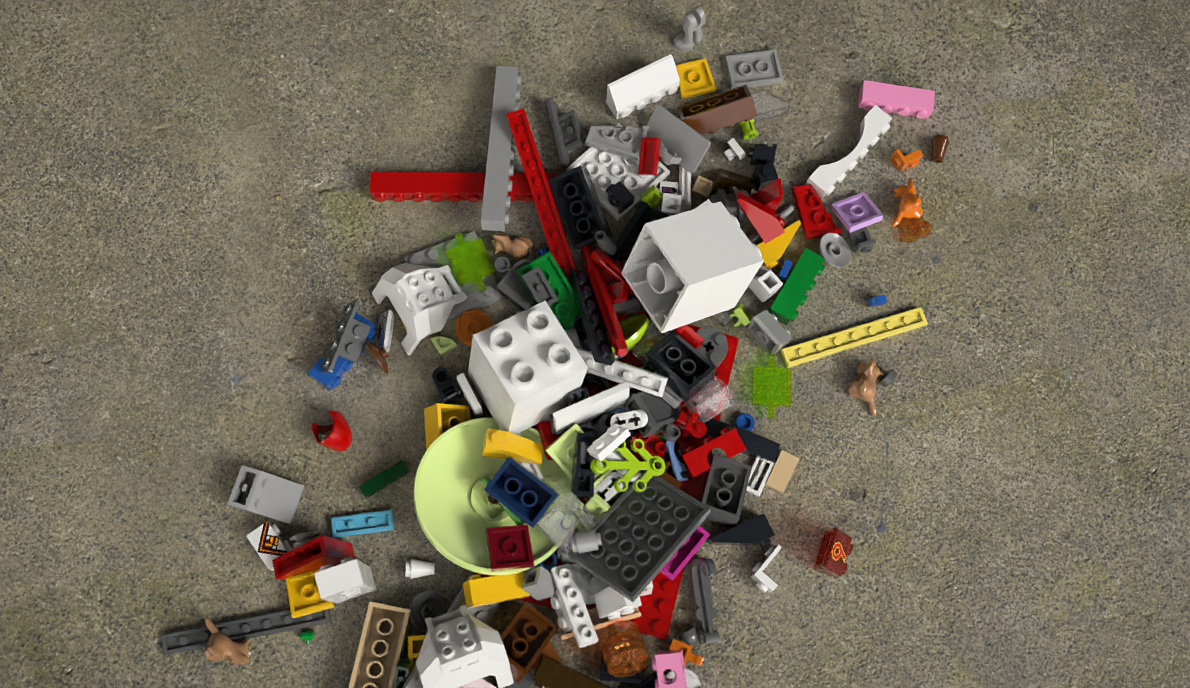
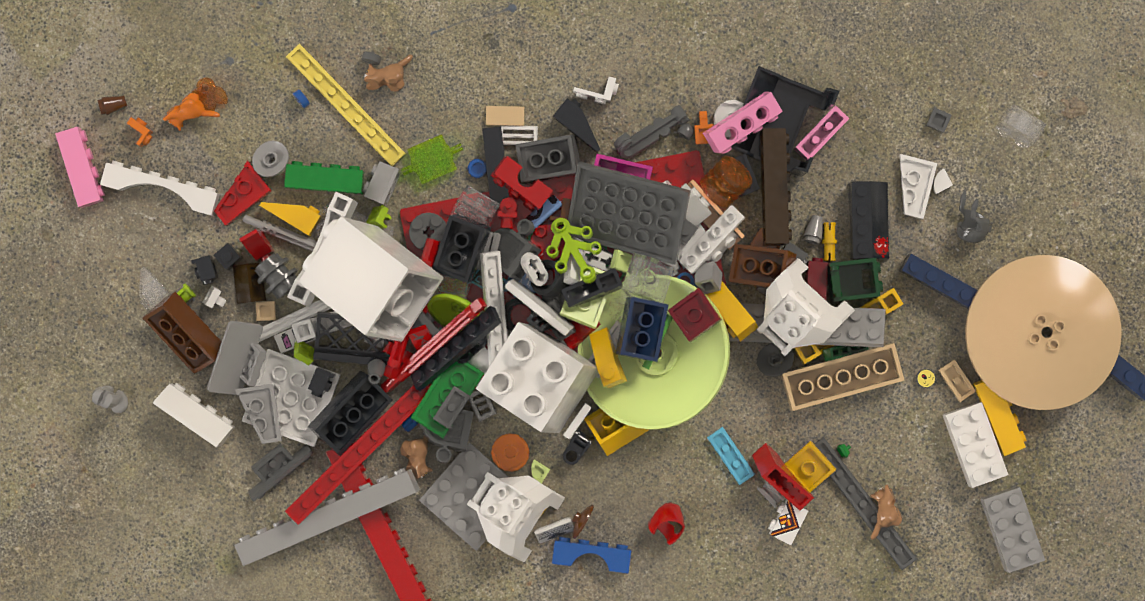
camera: 110 degrees left, 15 degrees up
(265, 494) = (748, 549): light grey slope -> none
(345, 580) = (787, 436): white brick -> none
(349, 339) = (581, 553): dark grey bracket -> none
(384, 479) = (684, 457): dark green piece -> none
(418, 568) = (744, 387): white cone -> none
(470, 262) = (453, 486): clear neon green plate -> none
(586, 541) = (658, 254): light grey brick -> none
(608, 442) = (565, 276): white plate -> none
(649, 156) = (267, 373): red tile -> none
(695, 78) = (154, 372): yellow tile -> none
(753, 69) = (114, 319): light grey tile -> none
(762, 217) = (279, 240): slope -> none
(784, 270) = (315, 196): blue tile -> none
(833, 553) = (557, 39): clear red slope -> none
(857, 212) = (221, 155): lavender plate -> none
(861, 241) = (247, 138): dark grey bracket -> none

